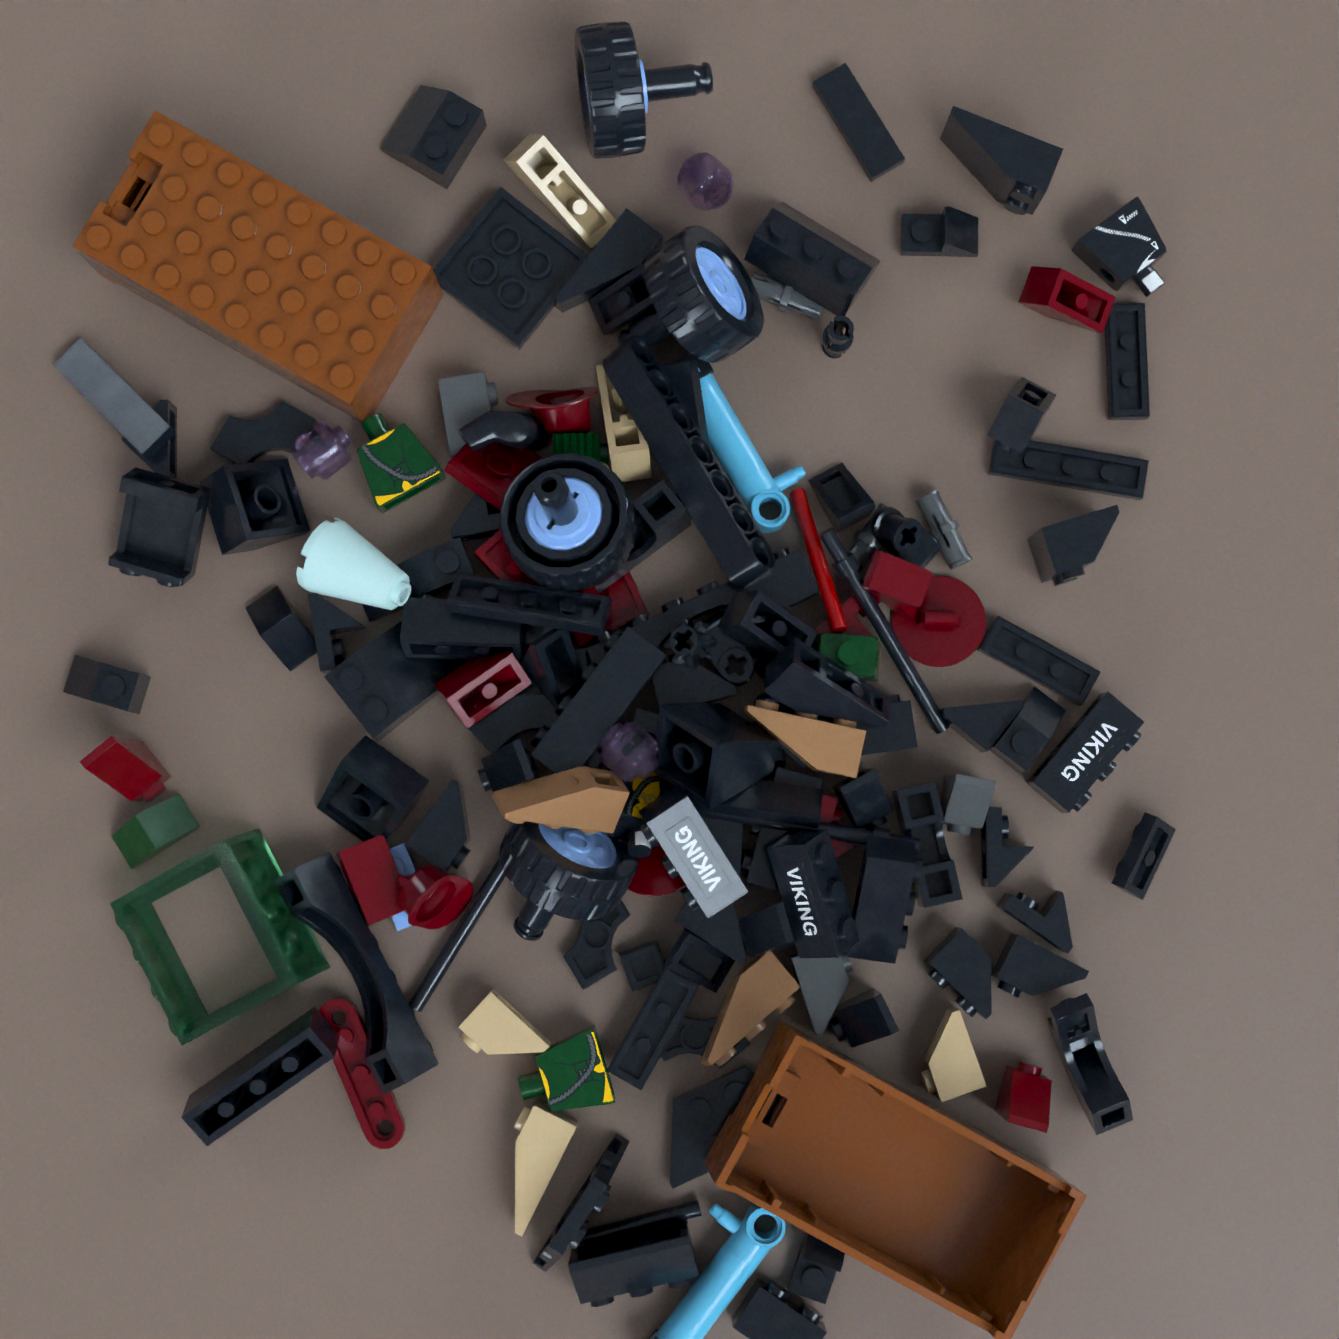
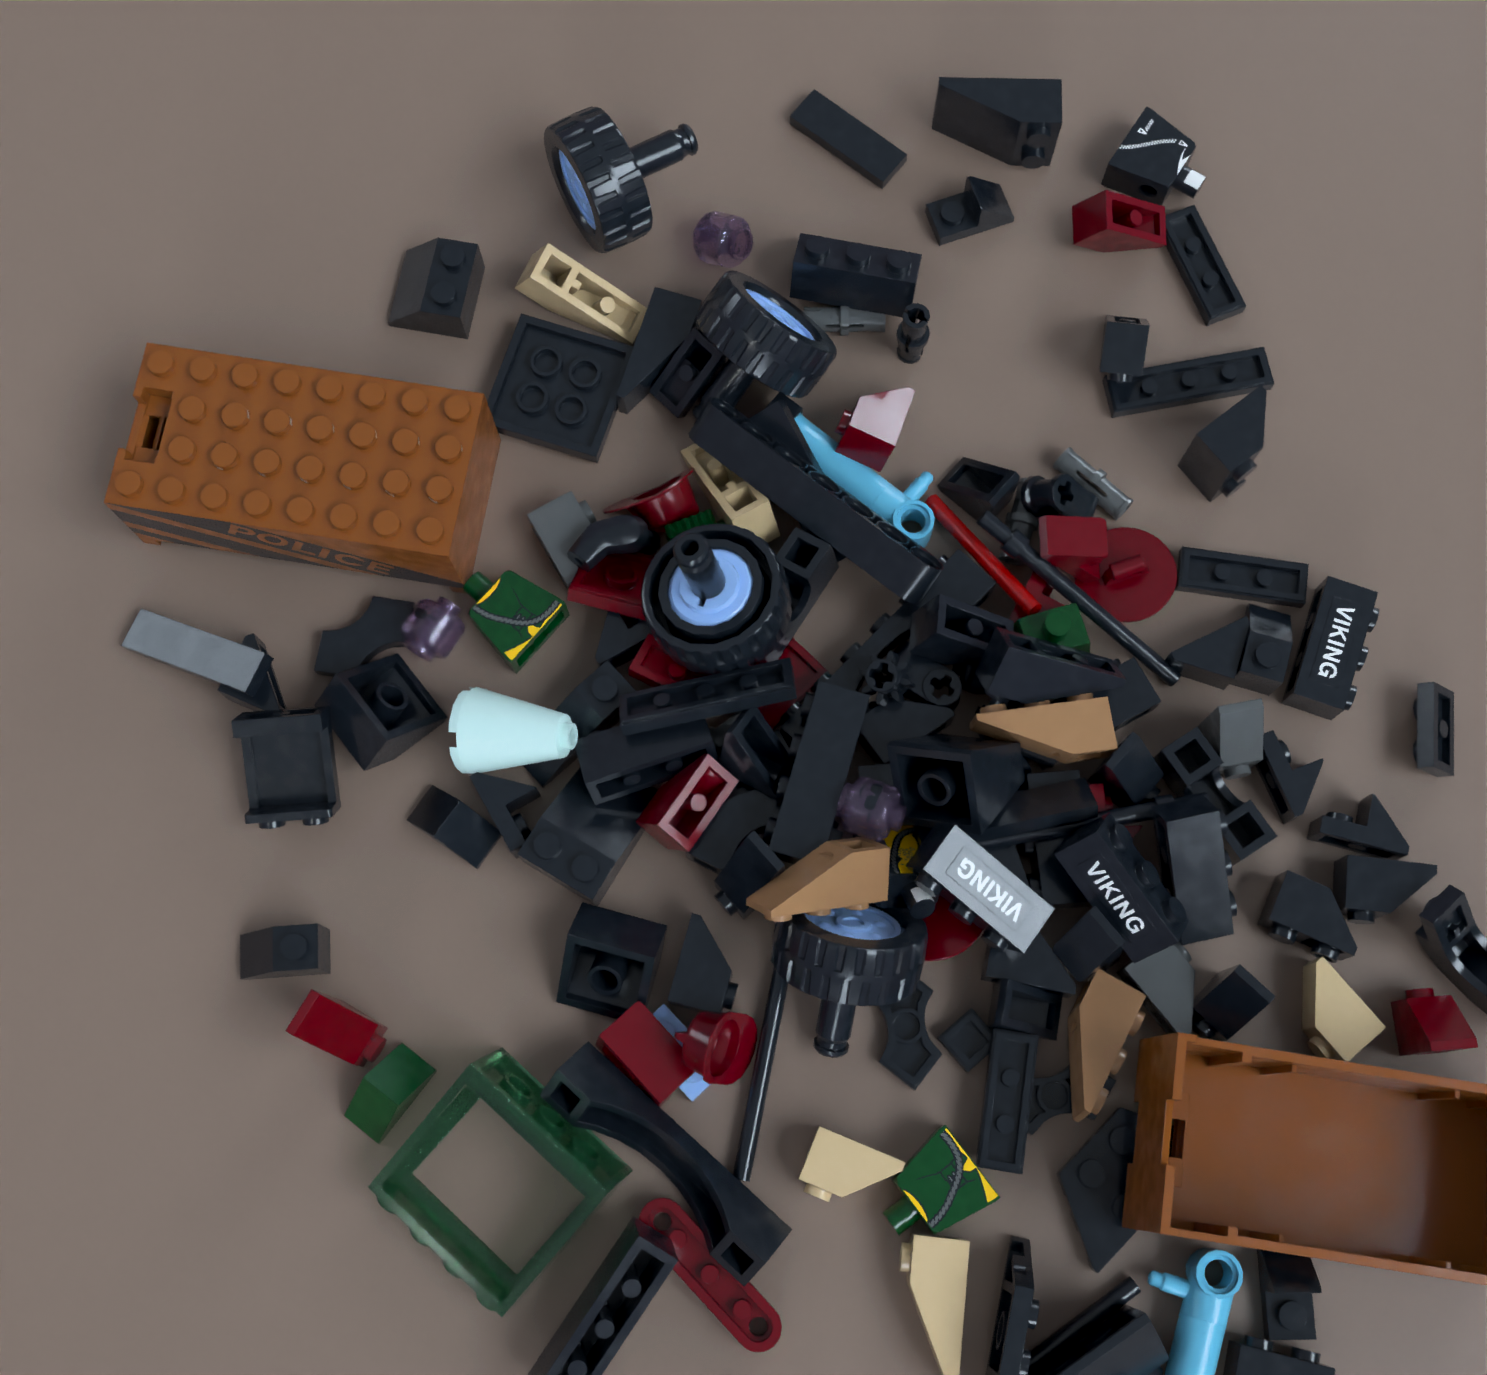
camera: 15 degrees left, 10 degrees down
(769, 411) = (873, 427): none -> slope

